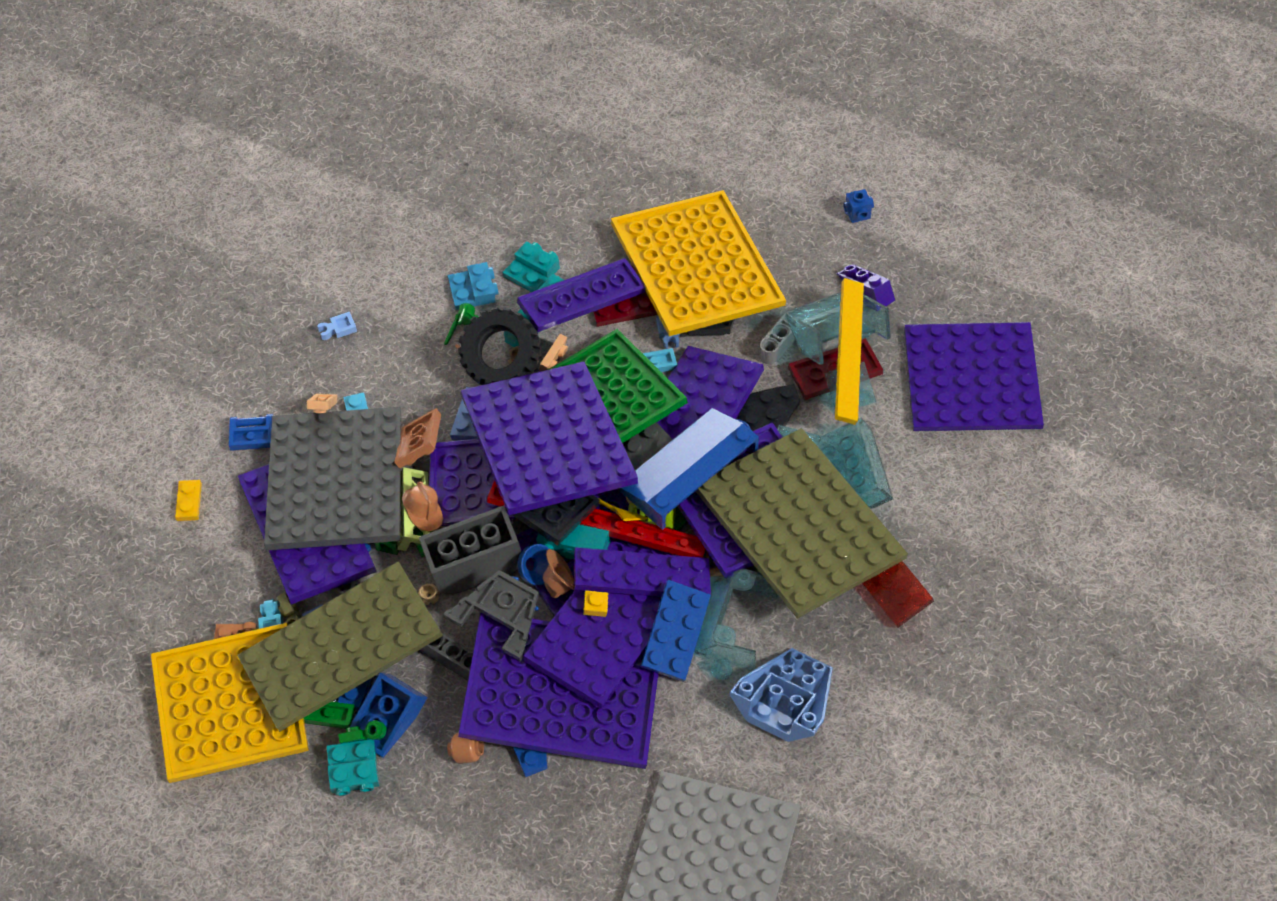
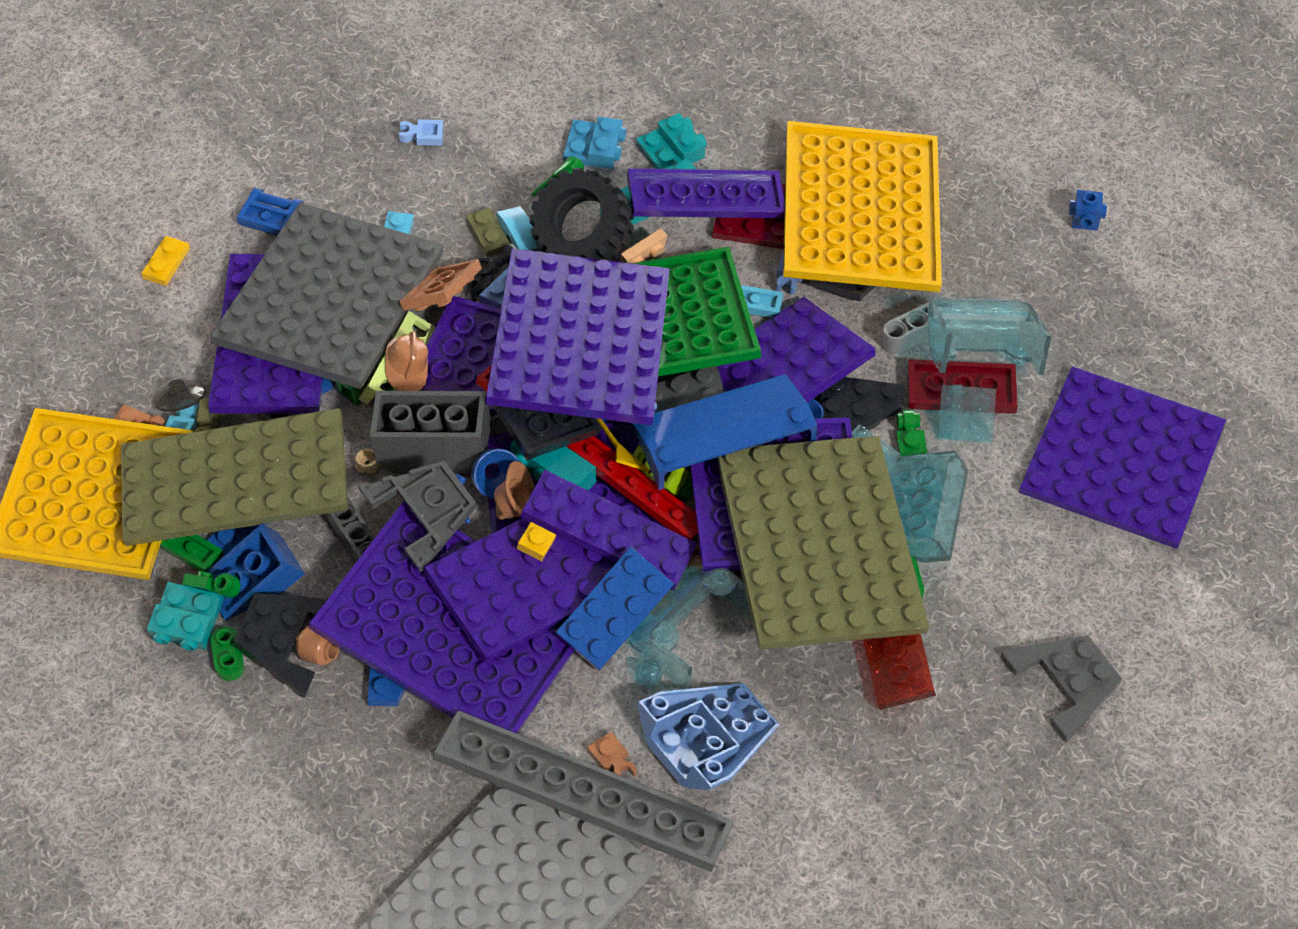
camera: 20 degrees right, 0 degrees up
(257, 600) = (179, 395): none -> clear smoke dish
(321, 402) = (359, 207): light nougat plate -> none
(397, 781) = (224, 652): none -> green plate
(426, 753) = (271, 632): none -> black wing
(427, 384) = (487, 231): none -> olive plate
(445, 424) = (489, 268): none -> black piece
(452, 373) = (517, 226): none -> medium azure slope
(721, 773) = (584, 790): none -> dark grey plate
(724, 739) = (610, 754): none -> nougat plate
(817, 423) = (910, 440): none -> green plate
(849, 351) = (980, 370): yellow tile -> none
(875, 286) = (1051, 305): dark purple slope -> none
(1019, 543) = (1076, 669): none -> dark grey wing

